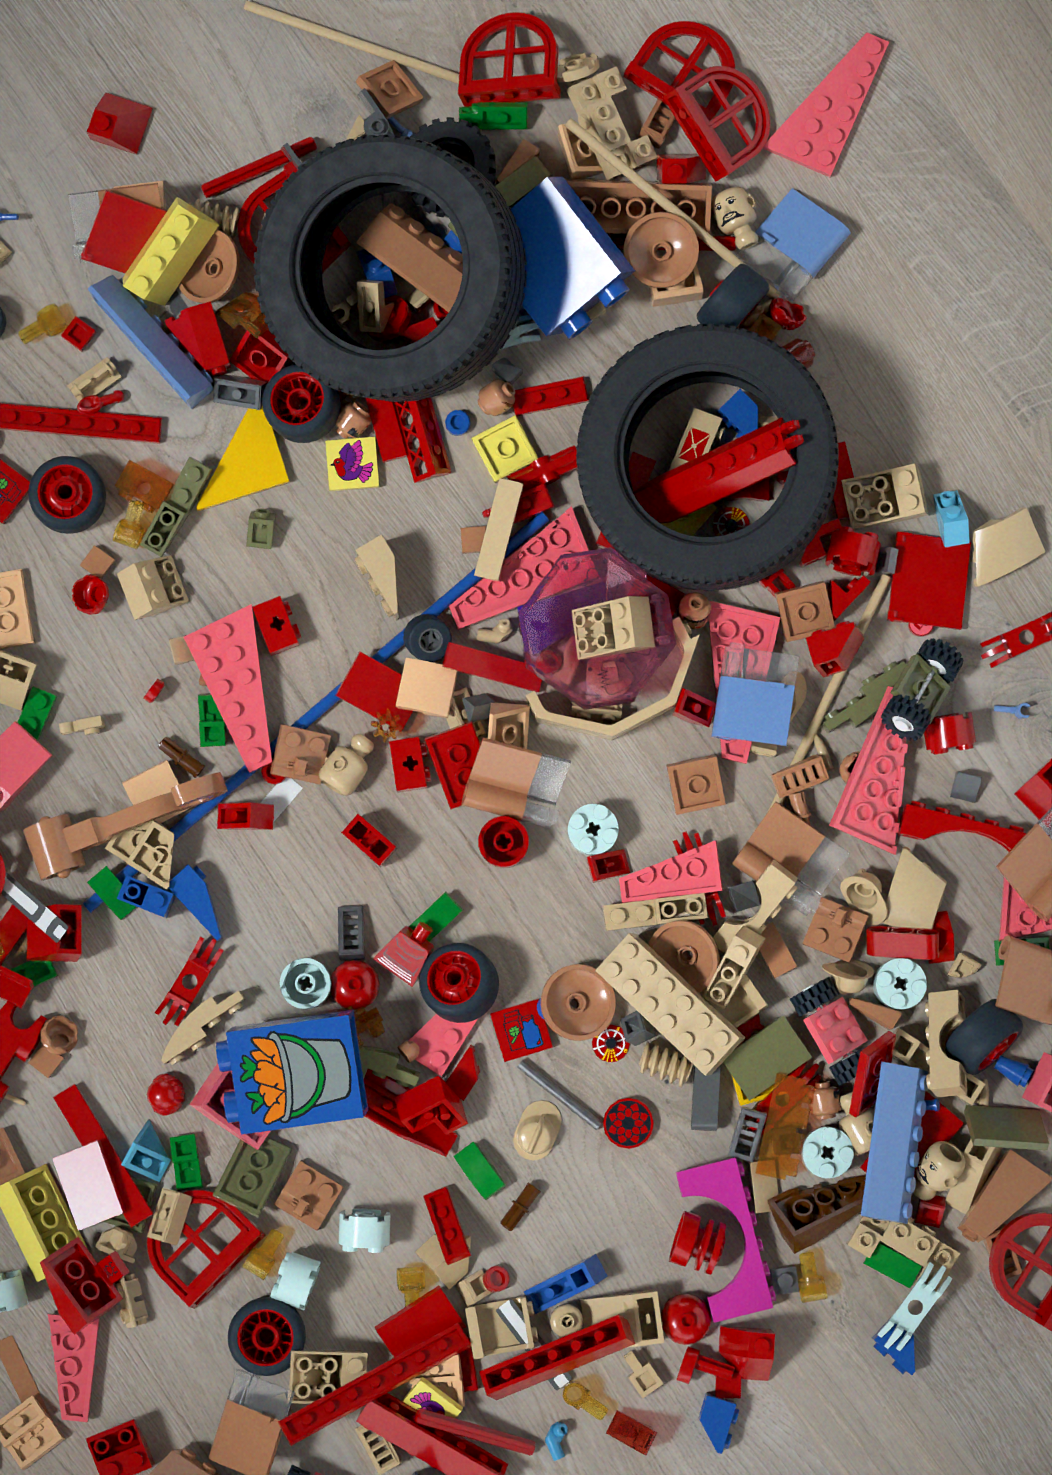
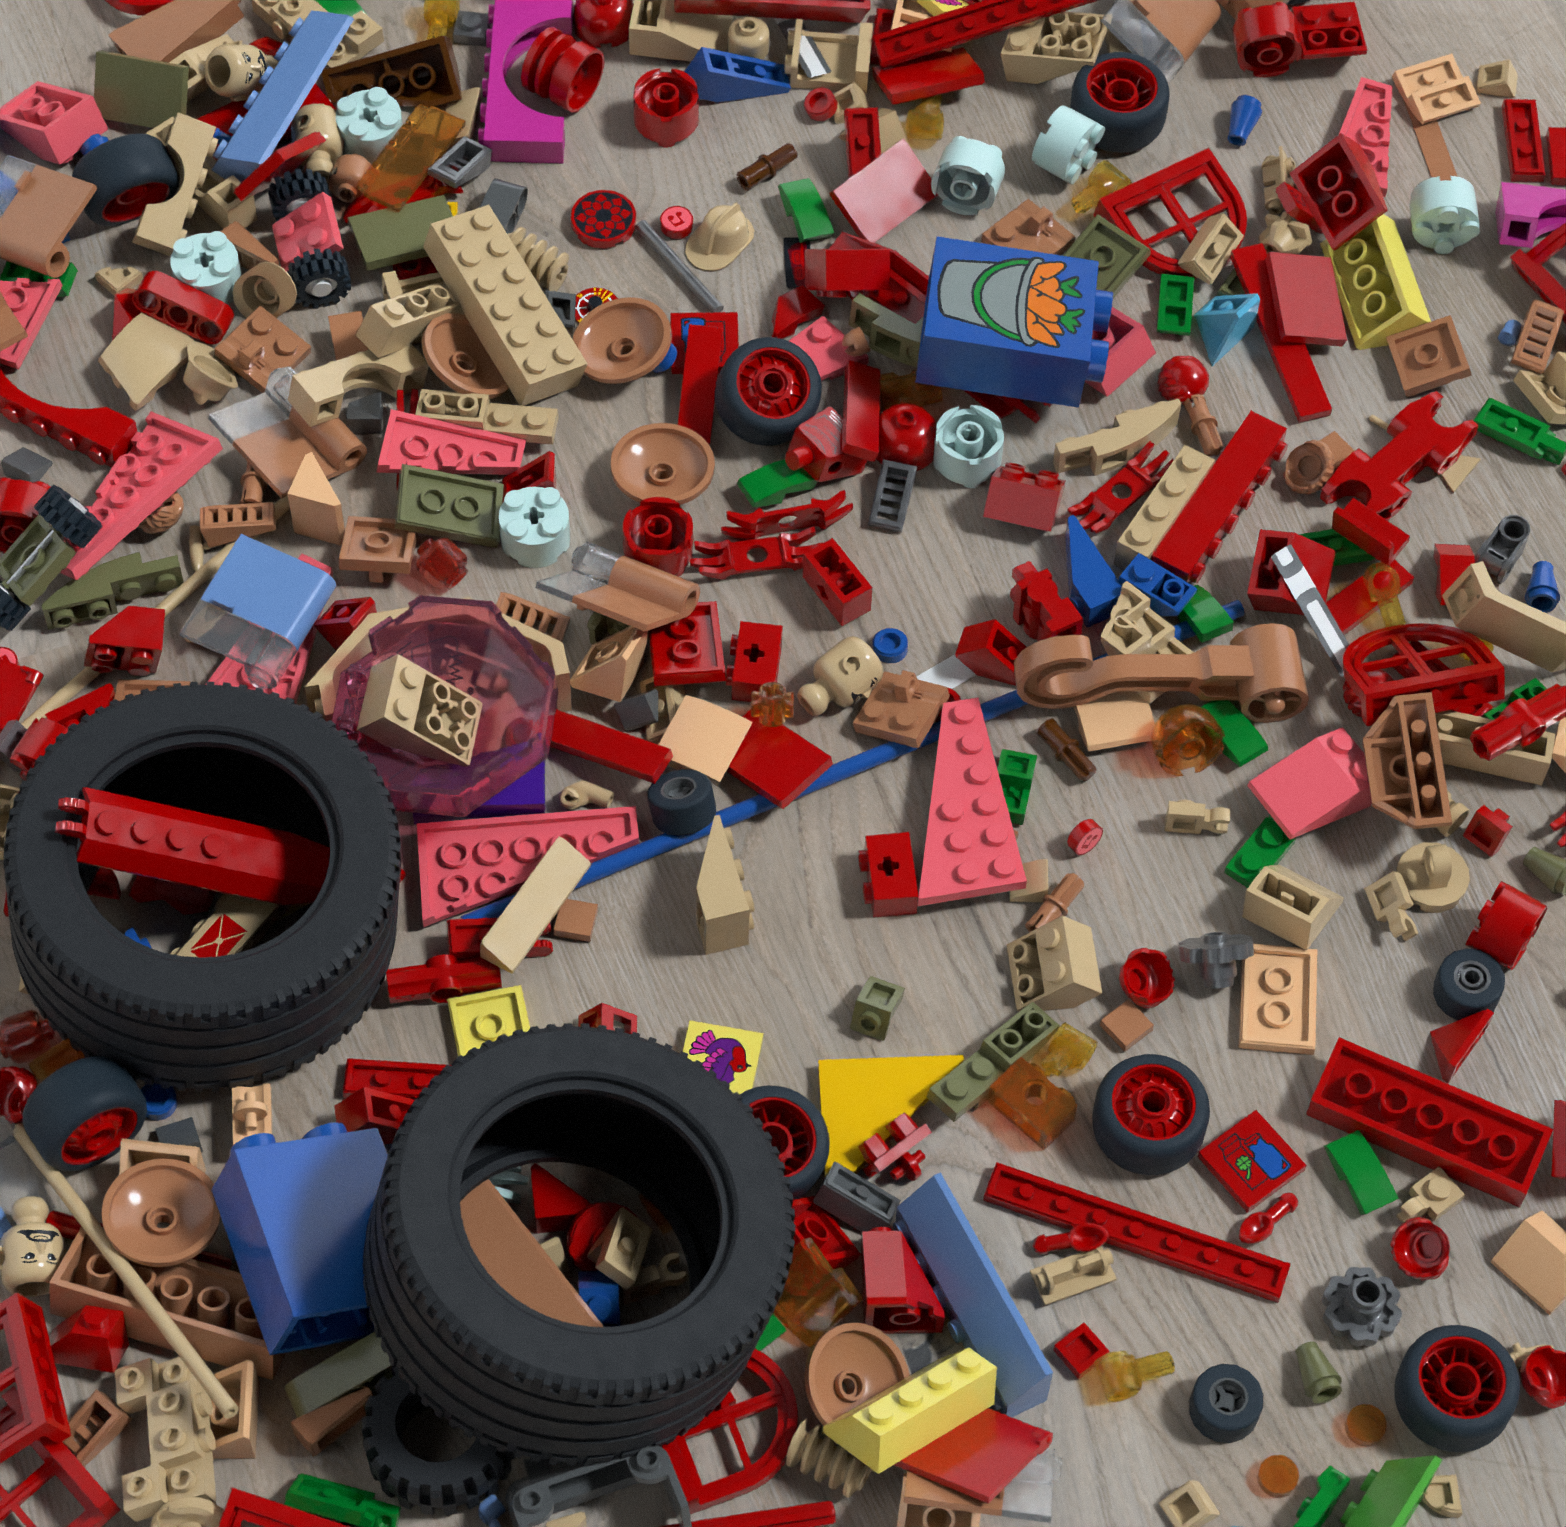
camera: 165 degrees left, 25 degrees down
(48, 622) = (1216, 956): none -> flat silver plant
(72, 801) = (1241, 738): none -> green slope
(103, 783) = (1186, 739): none -> clear orange cylinder
(118, 991) = (1221, 497): none -> red brick
(142, 1055) = (1204, 425): none -> nougat axle
(154, 968) = (1163, 506): none -> tan arch
(162, 635) = (1057, 902): none -> nougat axle
(165, 1431) = (1266, 39): none -> red brick
(170, 1355) = (1243, 118): none -> blue cone
(221, 428) = (880, 1156): none -> red hips
(221, 855) = (1040, 606): none -> red hips
(256, 954) = (1024, 496): none -> red slope
(322, 810) = (890, 645): none -> blue tile
(389, 990) = (861, 411): none -> red tile
(424, 1199) = (884, 192): none -> tile
(442, 872) = (759, 523): none -> red piece
(447, 850) = (780, 551): none -> red piece
(475, 1128) = (795, 261): none -> sticker
(512, 983) = (700, 379): none -> red tile
(520, 921) = (662, 463): none -> nougat dish
(553, 362) = (371, 1110): none -> red slope
(573, 747) = (520, 607): none -> nougat slope
(573, 1135) = (676, 222): none -> tile
(624, 1230) = (666, 106): none -> red brick
(629, 332) = (251, 1111): none -> light nougat hips
(647, 783) = (441, 563): none -> clear red head
(657, 830) = (448, 506): none -> olive tile
(675, 316) = (179, 1133): none -> dark grey slope
(748, 799) = (314, 504): none -> light nougat slope

